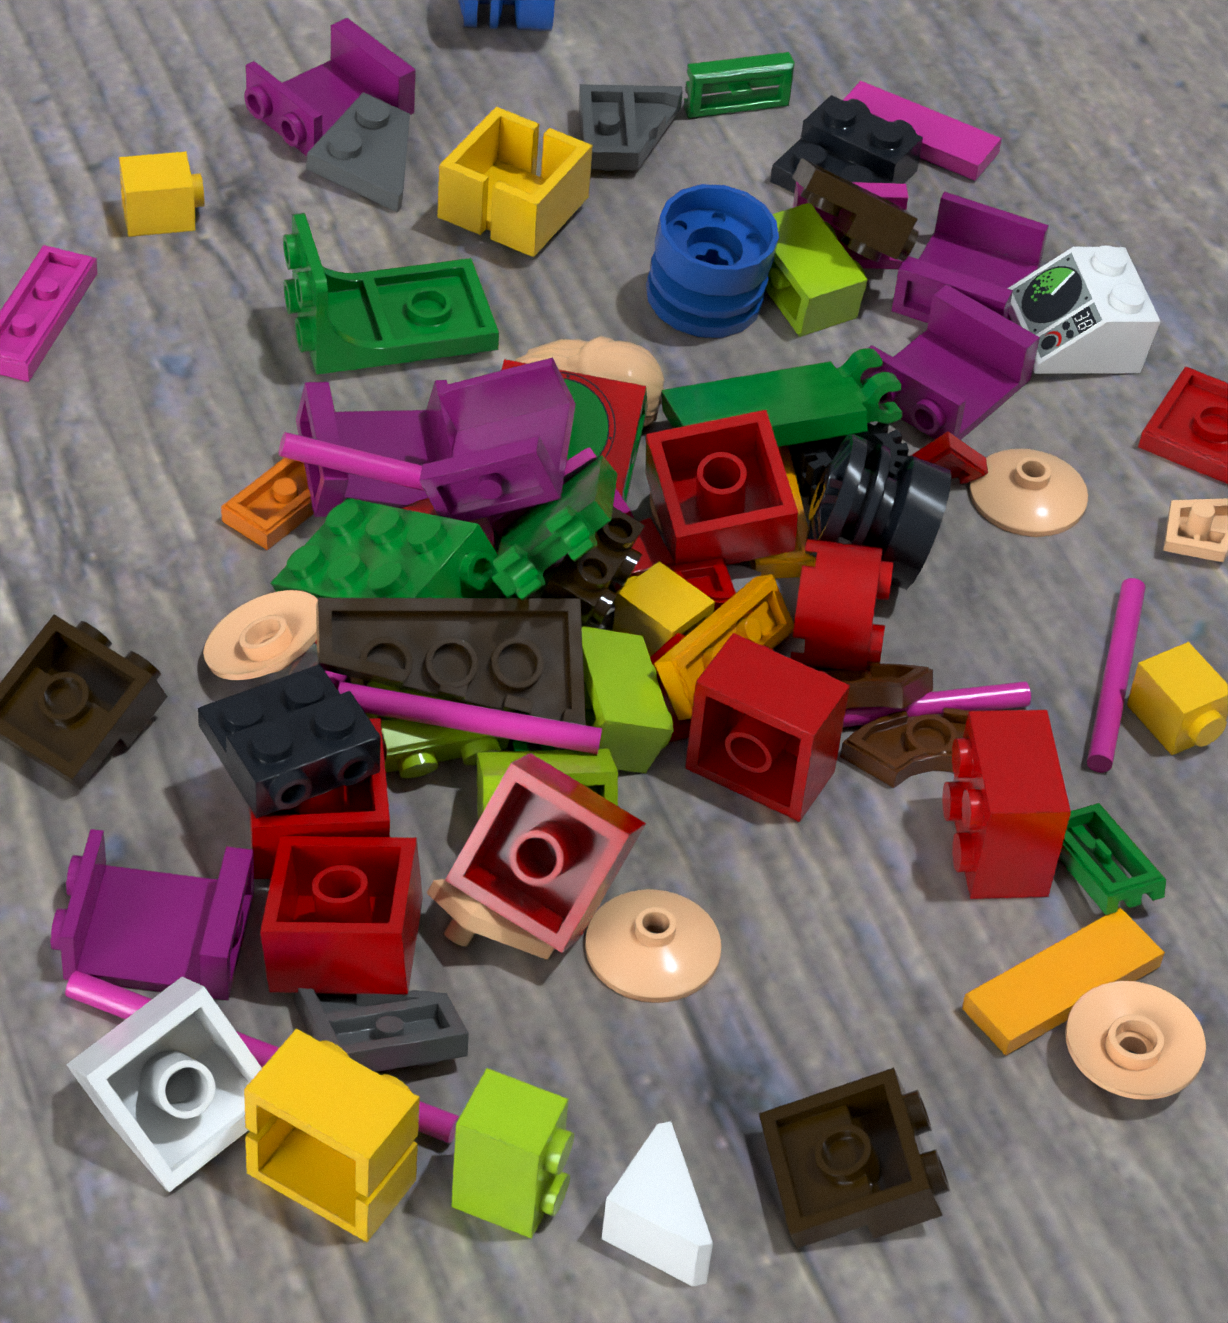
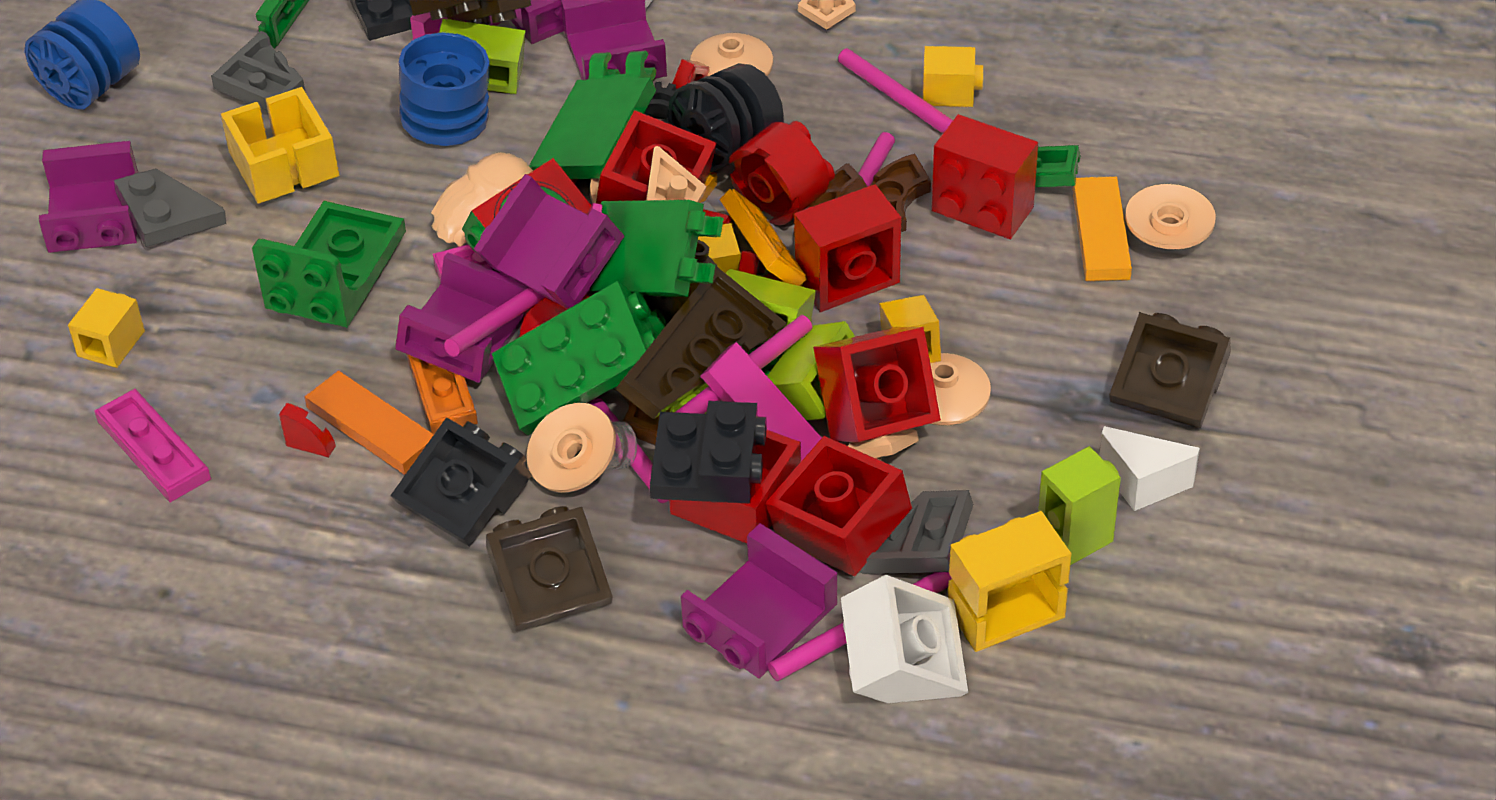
camera: 50 degrees left, 0 degrees up
(130, 412) = (304, 434): none -> red tile
(150, 568) = (462, 480): none -> black plate
(192, 461) = (369, 421): none -> orange tile
(430, 765) = (739, 379): none -> dark pink tile
(680, 506) = (671, 180): none -> light nougat piece
(692, 857) = (913, 313): none -> yellow brick

